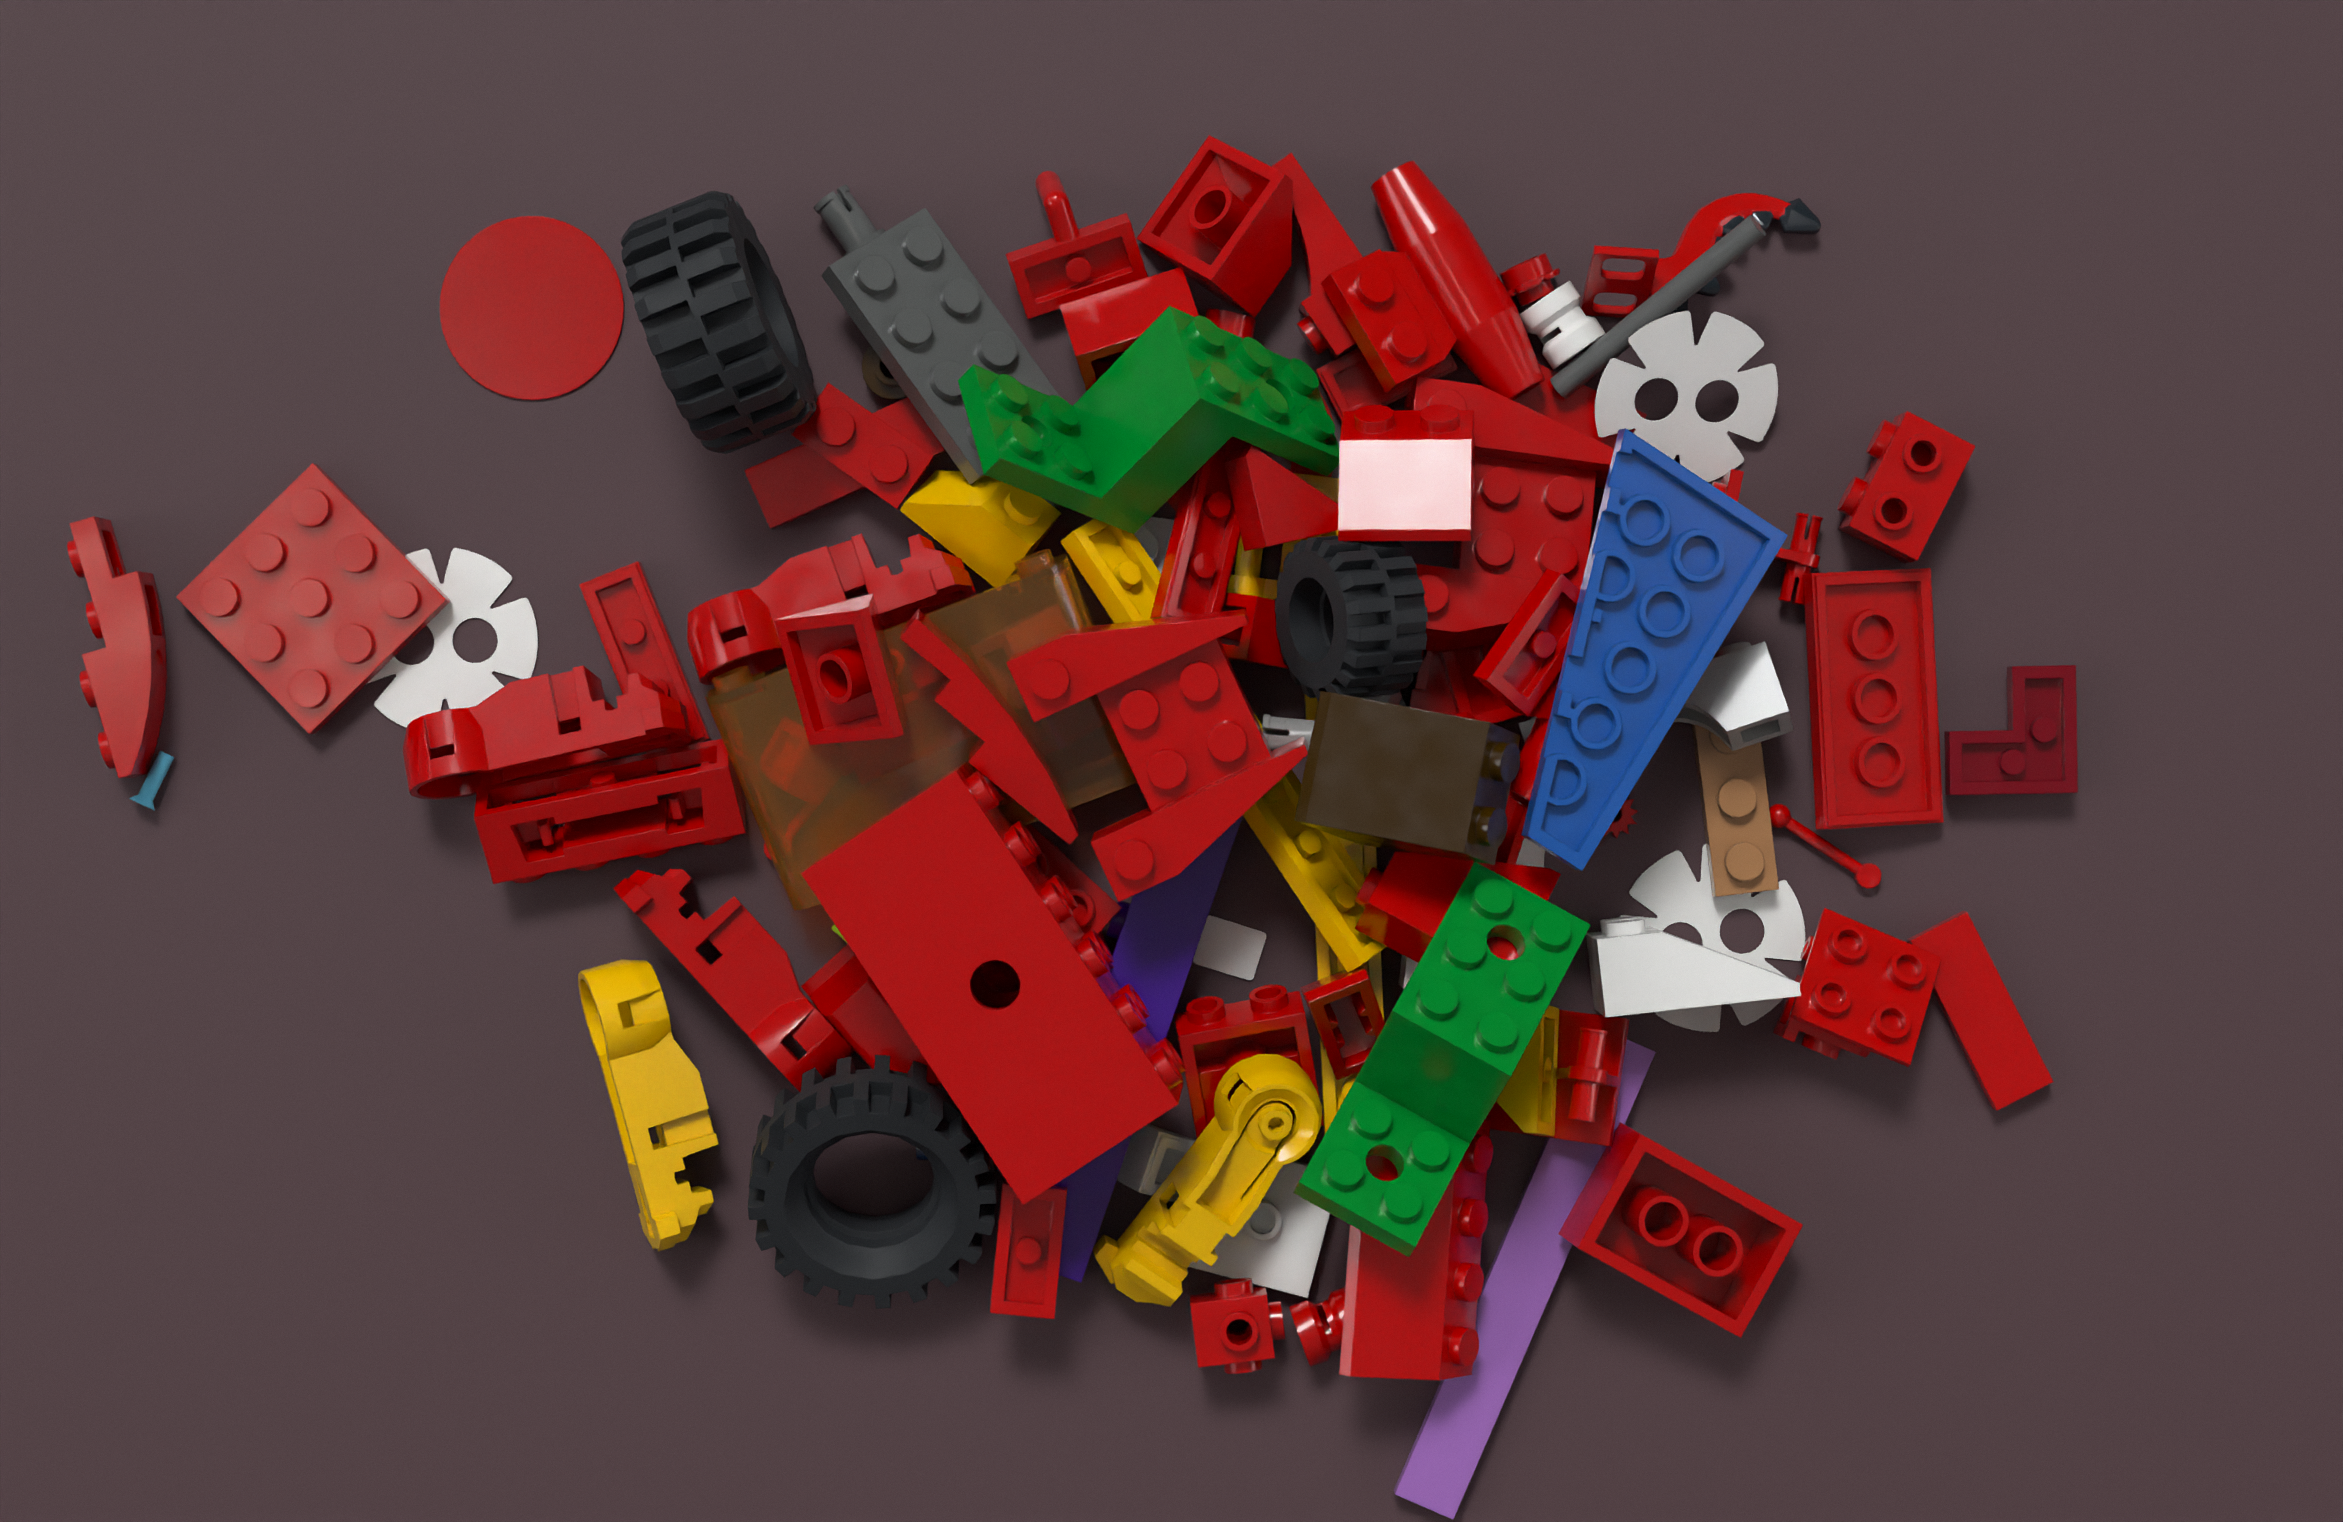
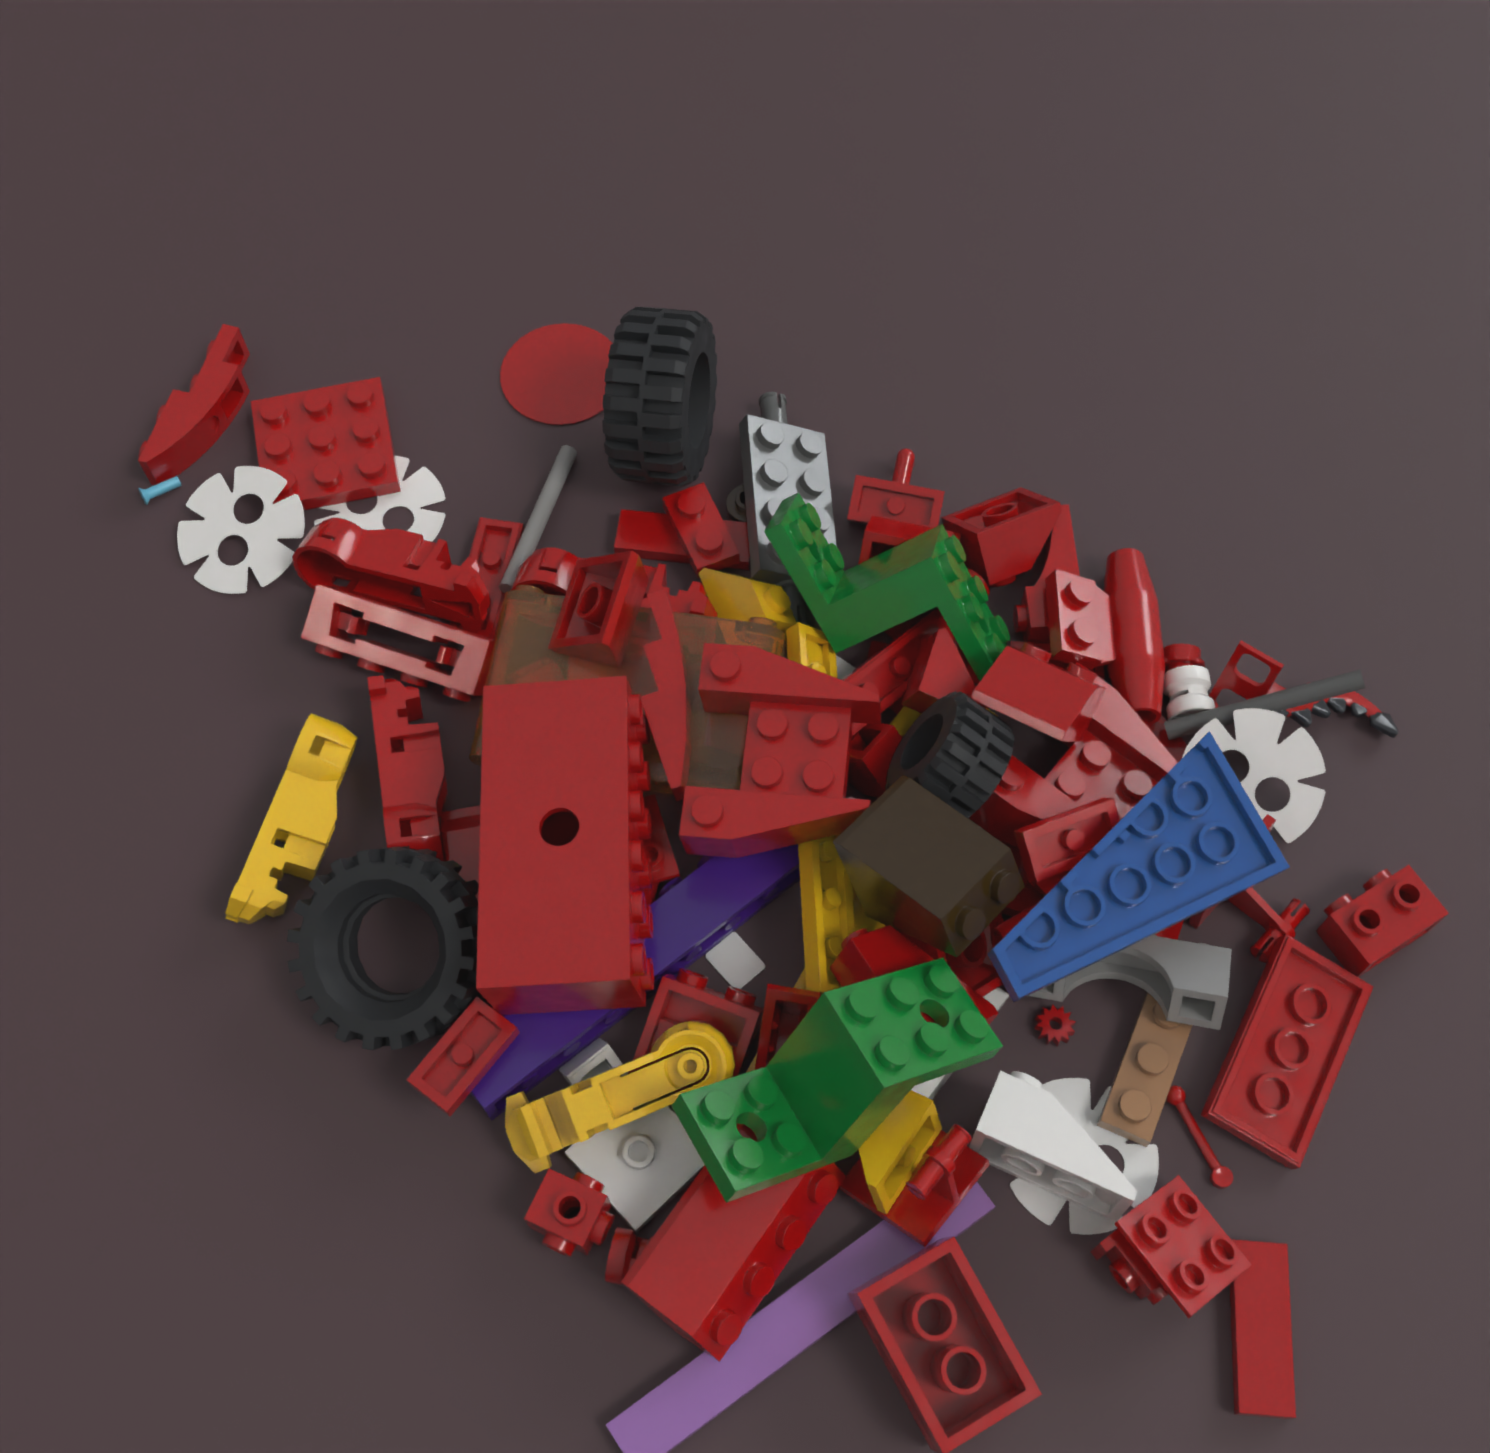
camera: 30 degrees right, 25 degrees down
(341, 745) = (216, 505): none -> white piece
(652, 541) = (540, 514): none -> light grey bar
(2036, 749) = (1388, 1156): dark red plate -> none

